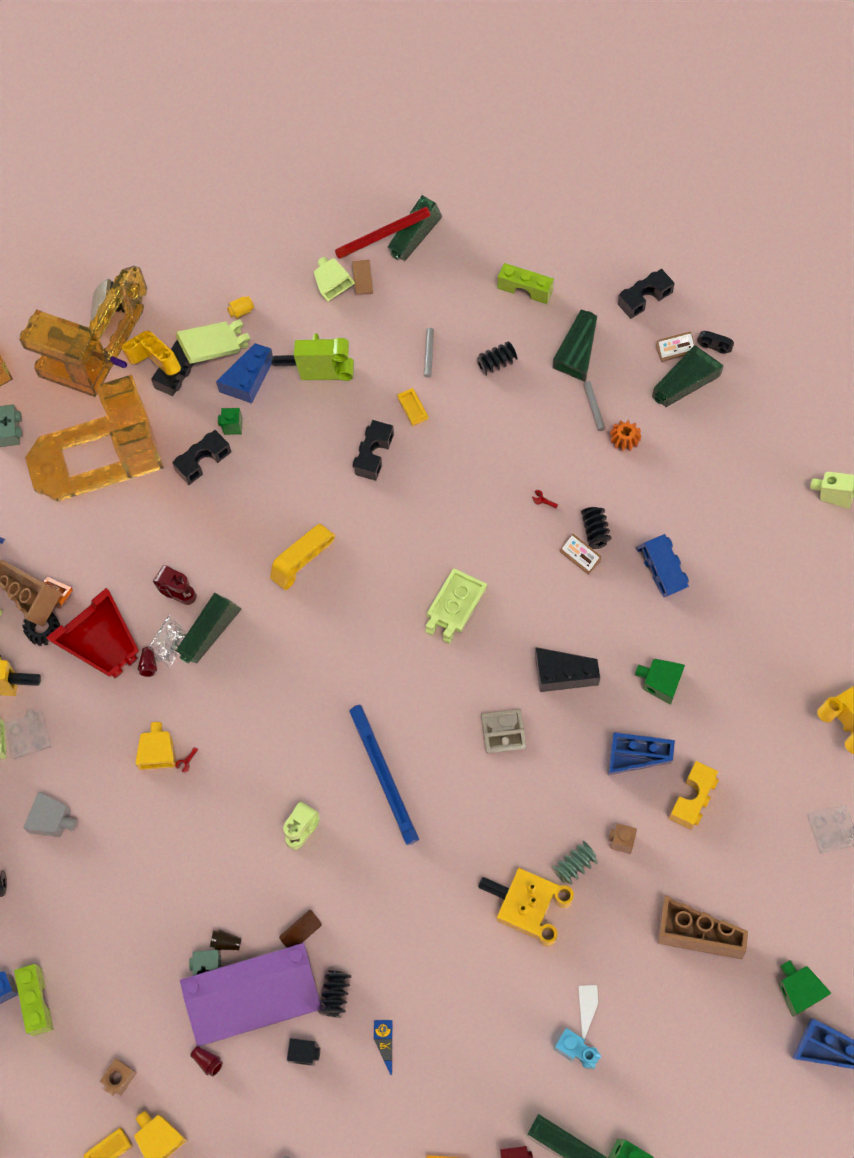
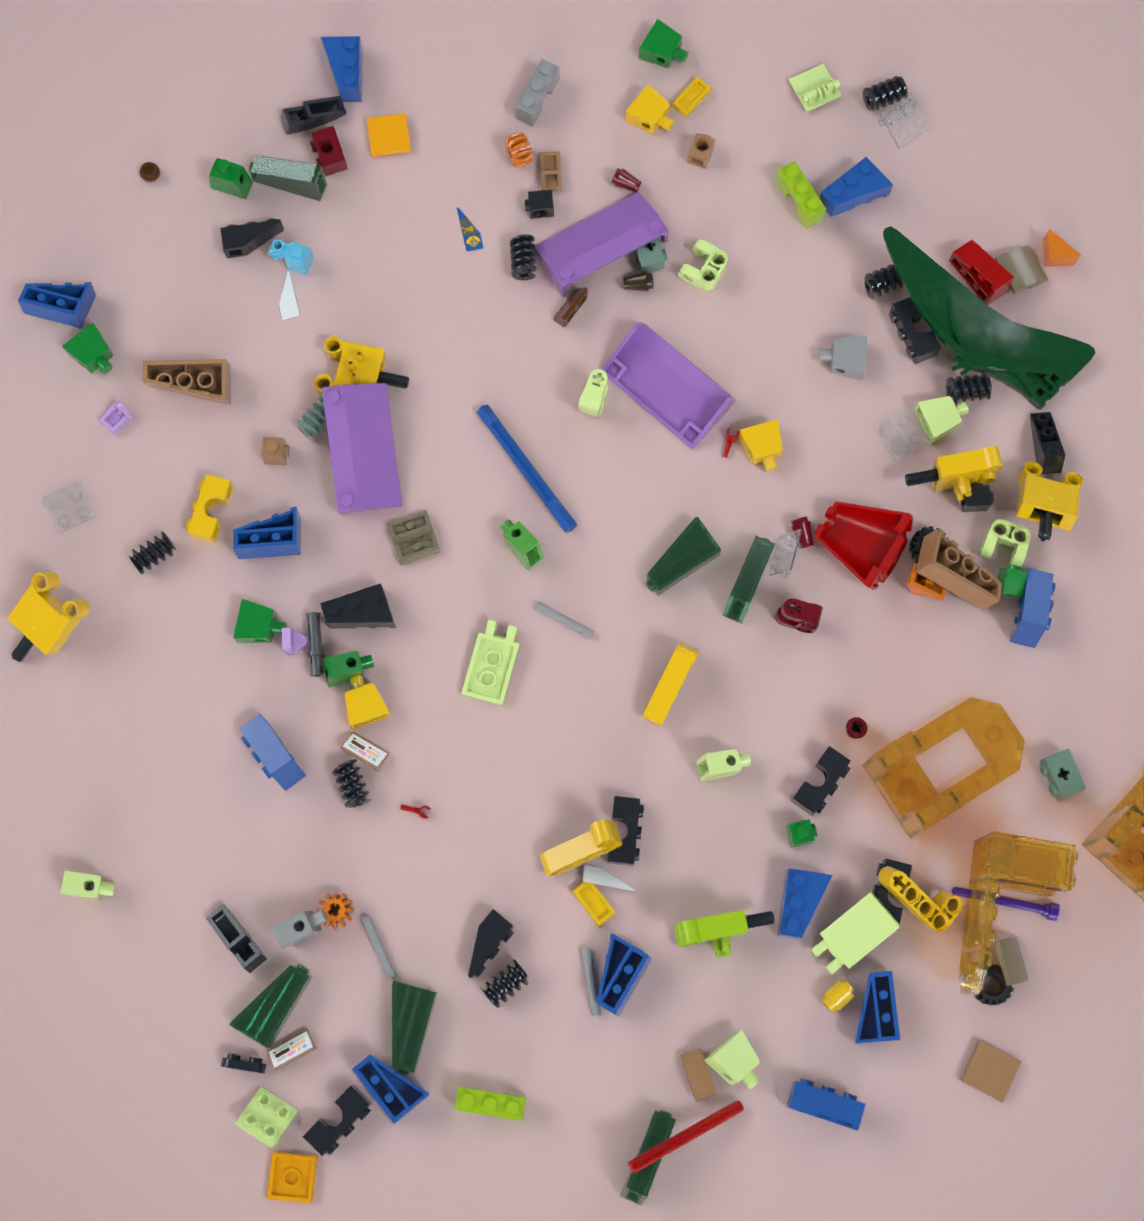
camera: 165 degrees right, 10 degrees up
(144, 243) = (990, 1071): none -> medium nougat tile
(151, 940) = (710, 269): none -> yellowish green piece
(159, 486) = (859, 724): none -> dark red cone
(213, 288) = (879, 1010): none -> blue wedge
(227, 827) = (667, 385): none -> medium lavender slope
(261, 659) = (685, 556): none -> clear green slope
(271, 239) = (825, 1104): none -> blue wedge
(279, 481) = (721, 764): none -> yellowish green torso
(282, 1092) = (551, 171): none -> medium nougat slope
(309, 1119) = (519, 149): none -> orange gear
(382, 630) = (564, 620): none -> light grey bar
(398, 437) = (598, 841): none -> yellow beam
(400, 692) = (522, 543): none -> bright green torso
(401, 349) = (621, 974): none -> blue wedge
(402, 423) = (600, 876): none -> white sticker
(500, 395) = (489, 936): none -> black slope
(537, 820) = (362, 447): none -> medium lavender slope
(573, 590) = (364, 703): none -> yellow torso
(586, 621) = (337, 668): none -> green torso
(602, 301) = (388, 1088): none -> blue wedge
(611, 644) = (315, 646): none -> dark grey pin
(627, 1082) = (245, 238): none -> black slope
(630, 658) = (293, 641): none -> lavender tile
(657, 421) = (299, 928): none -> light grey torso
(687, 266) = (292, 1177): none -> light orange tile
(701, 305) = (266, 1117): none -> yellowish green hinge
(711, 430) = (236, 938): none -> black slope
(754, 761) = (152, 552): none -> black piece
(780, 912) = (116, 417): none -> lavender tile

